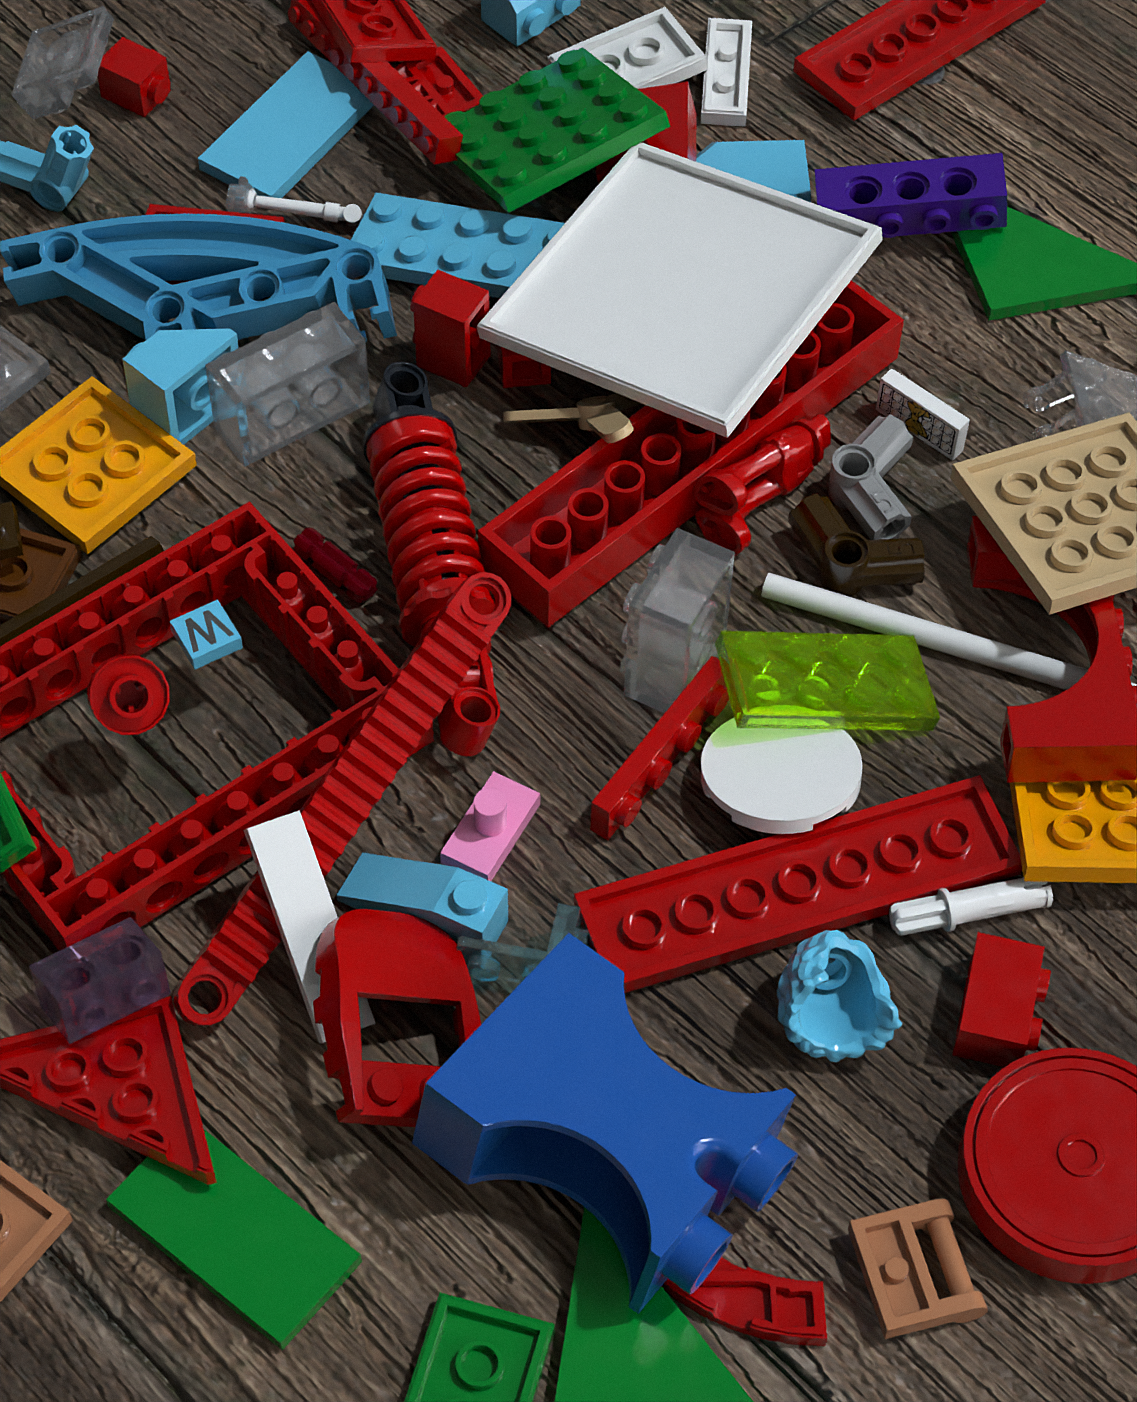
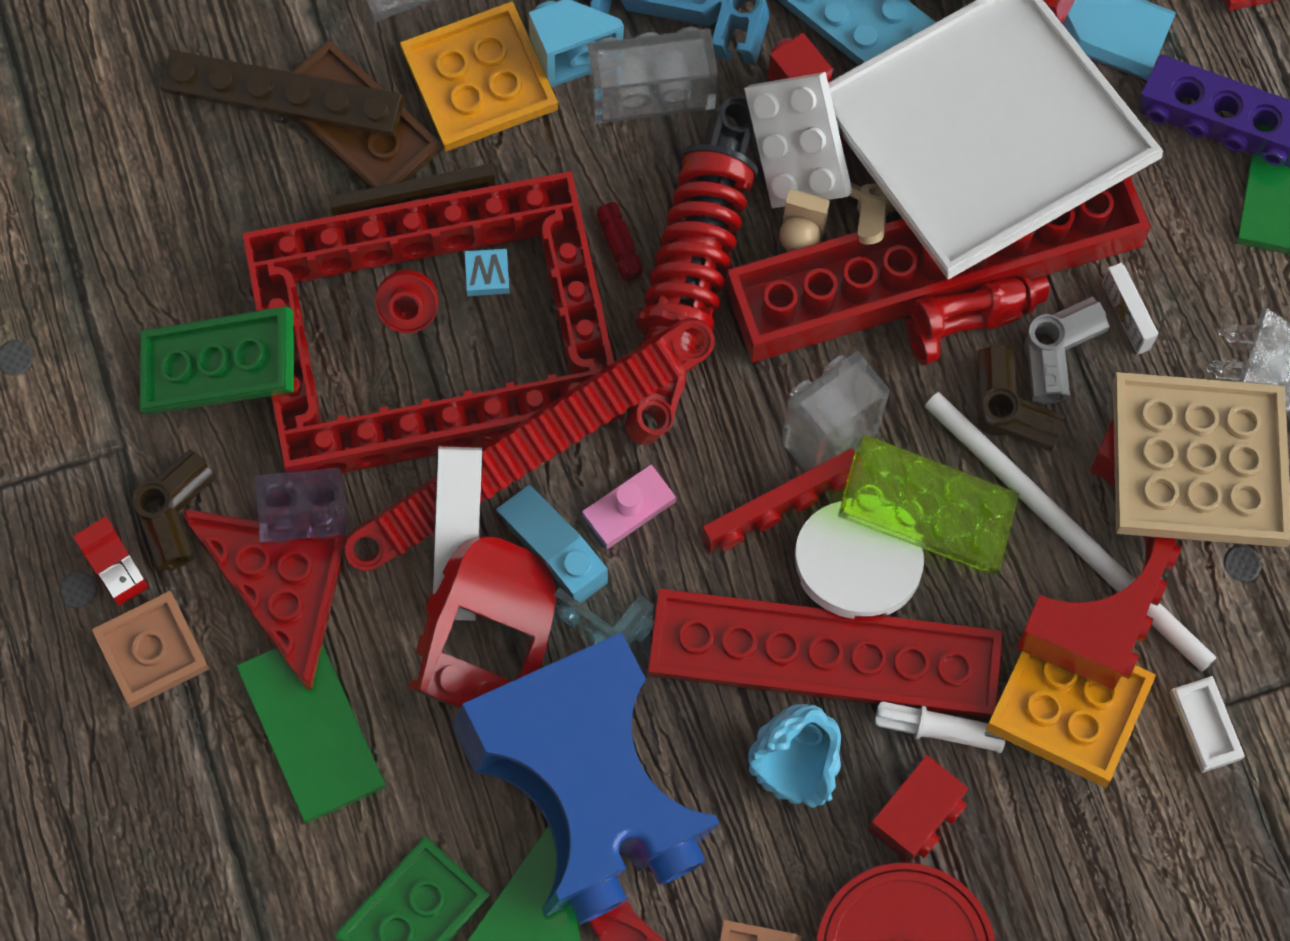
camera: 25 degrees right, 15 degrees up
(486, 378) = (798, 138): none -> white plate
(531, 451) = (803, 220): none -> tan tile

